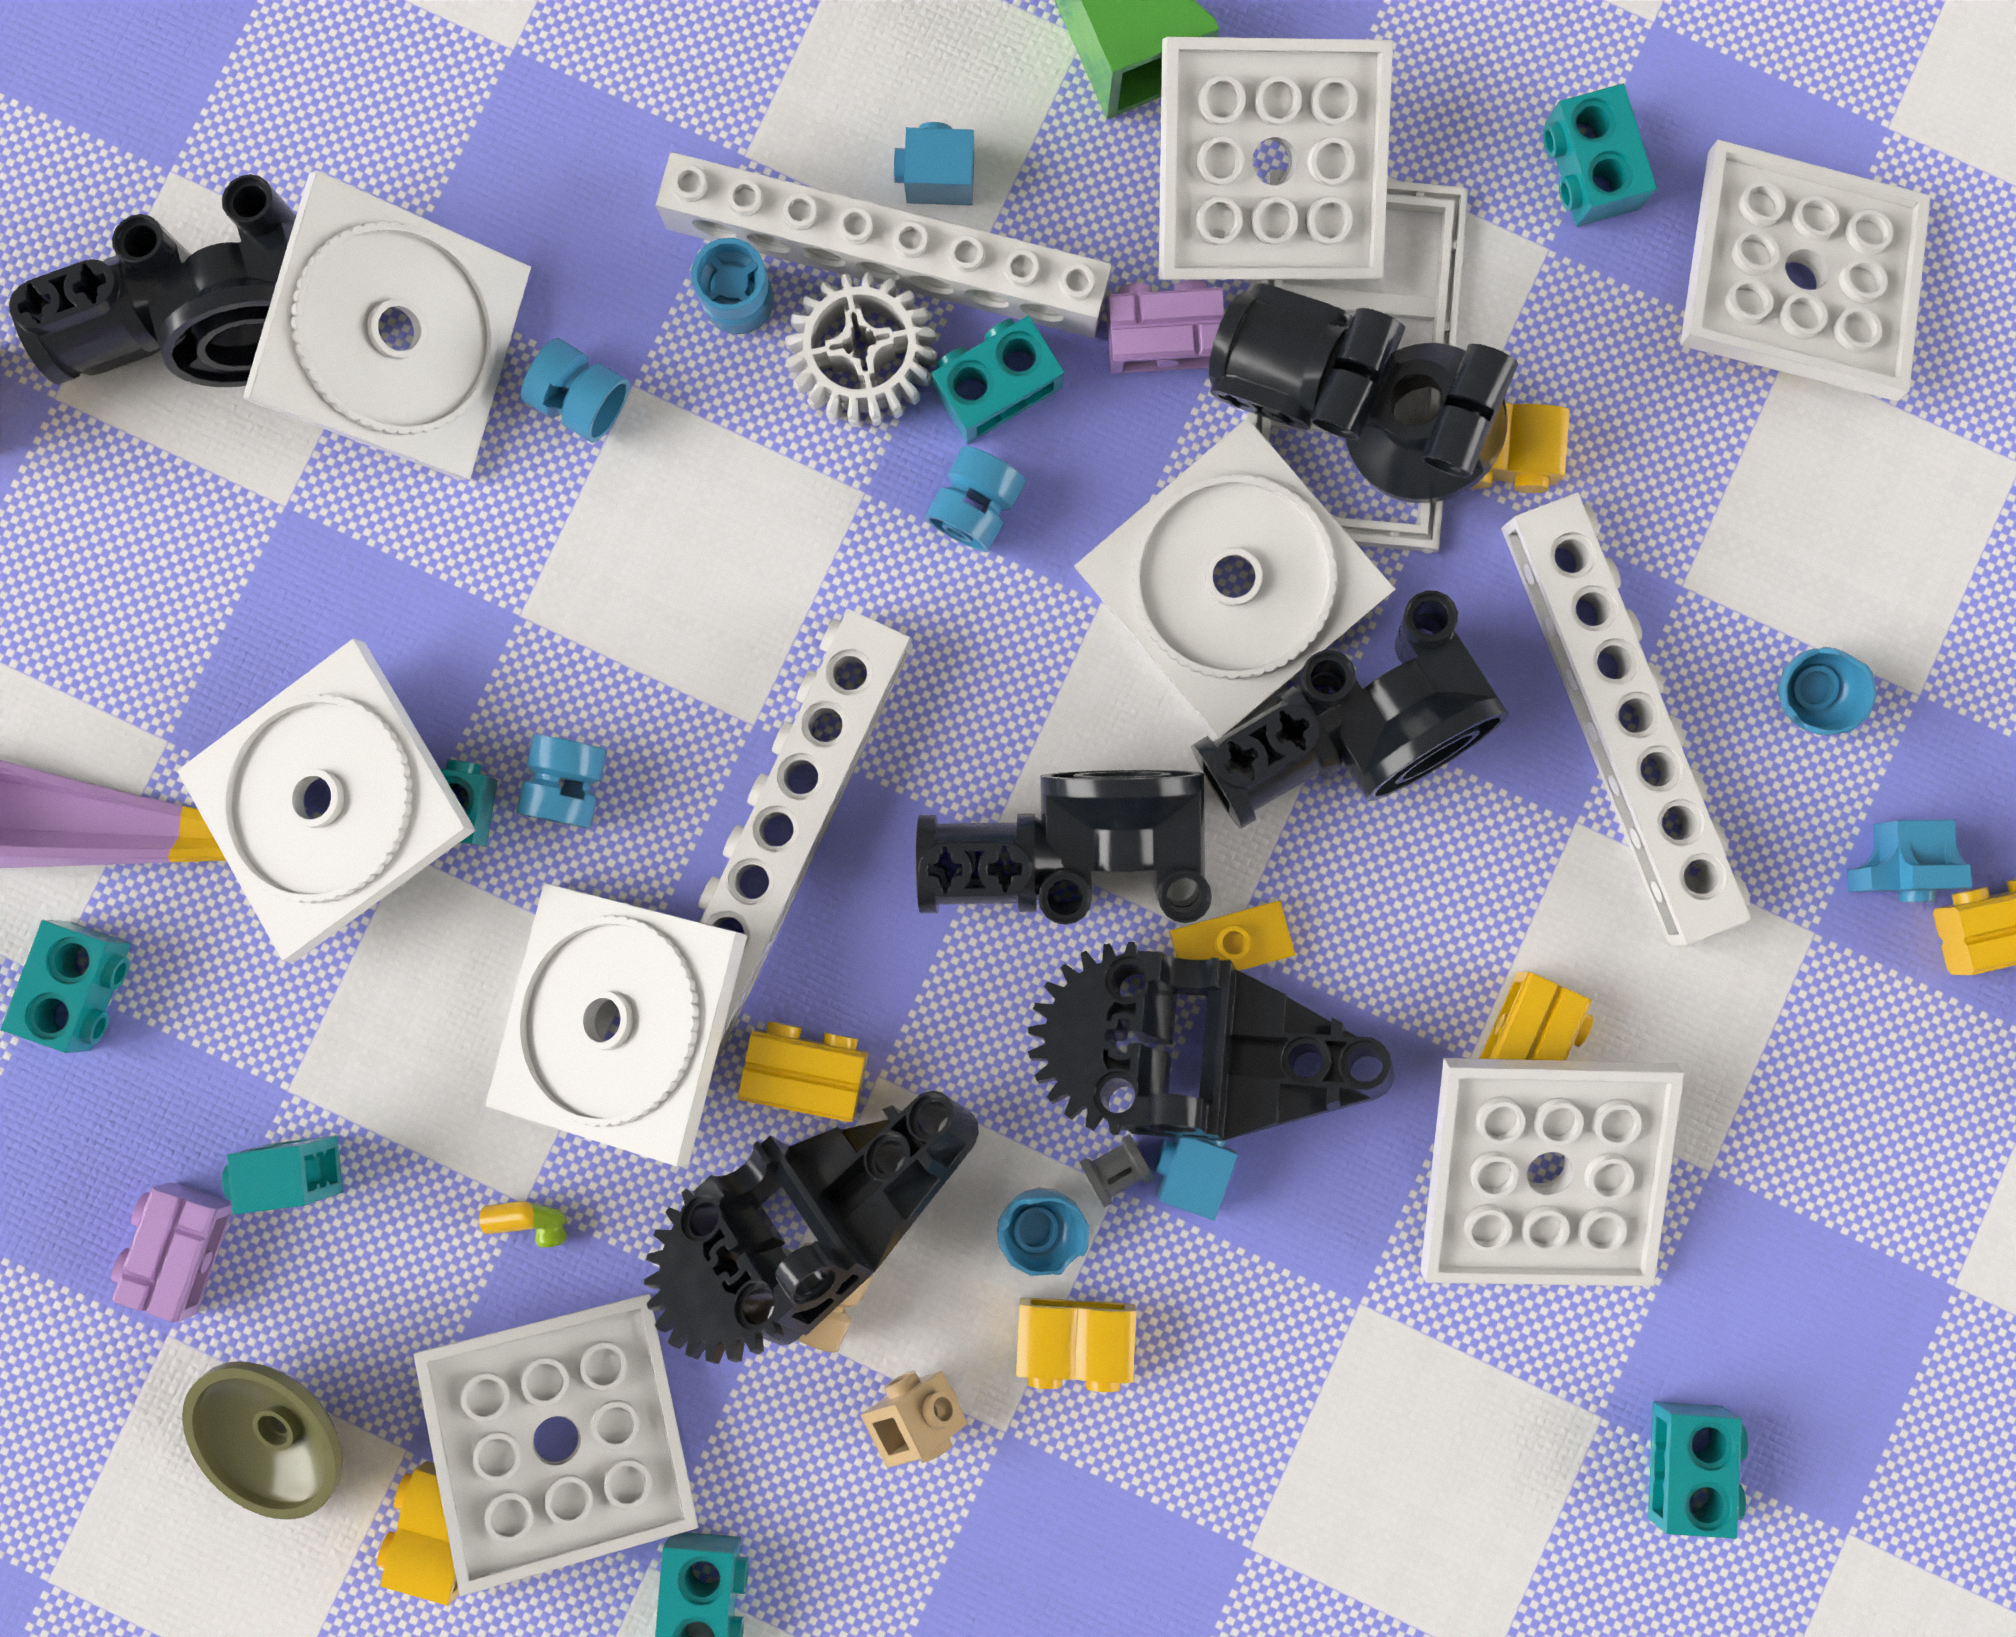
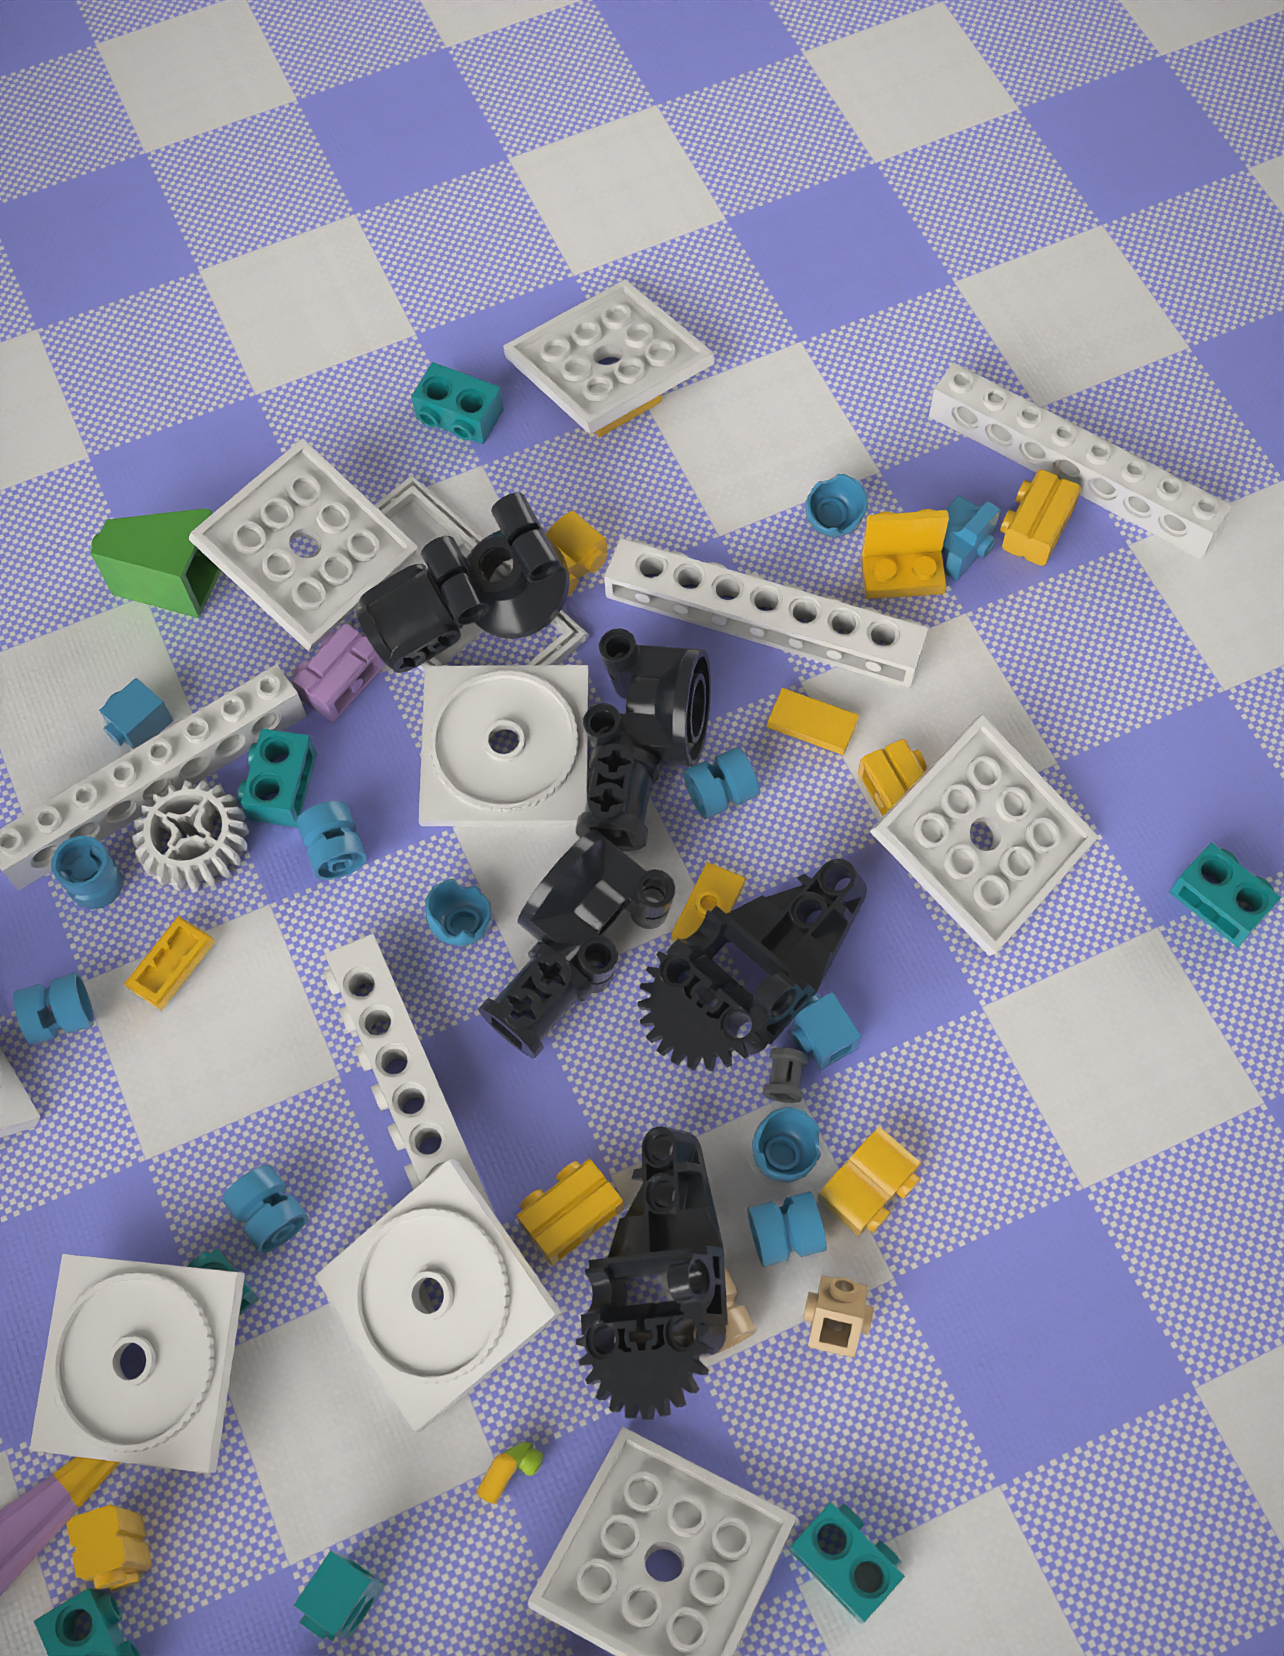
camera: 45 degrees left, 20 degrees down
(152, 929) = (109, 1547): none -> yellow brick
(717, 456) = (169, 963): none -> yellow plate
(960, 1300) = (787, 1229): none -> dark azure wheel
(1007, 699) = (458, 913): none -> dark azure hair
(1396, 856) = (723, 782): none -> dark azure wheel
(1537, 876) = (812, 721): none -> yellow tile
(1824, 817) = (904, 554): none -> yellow bracket

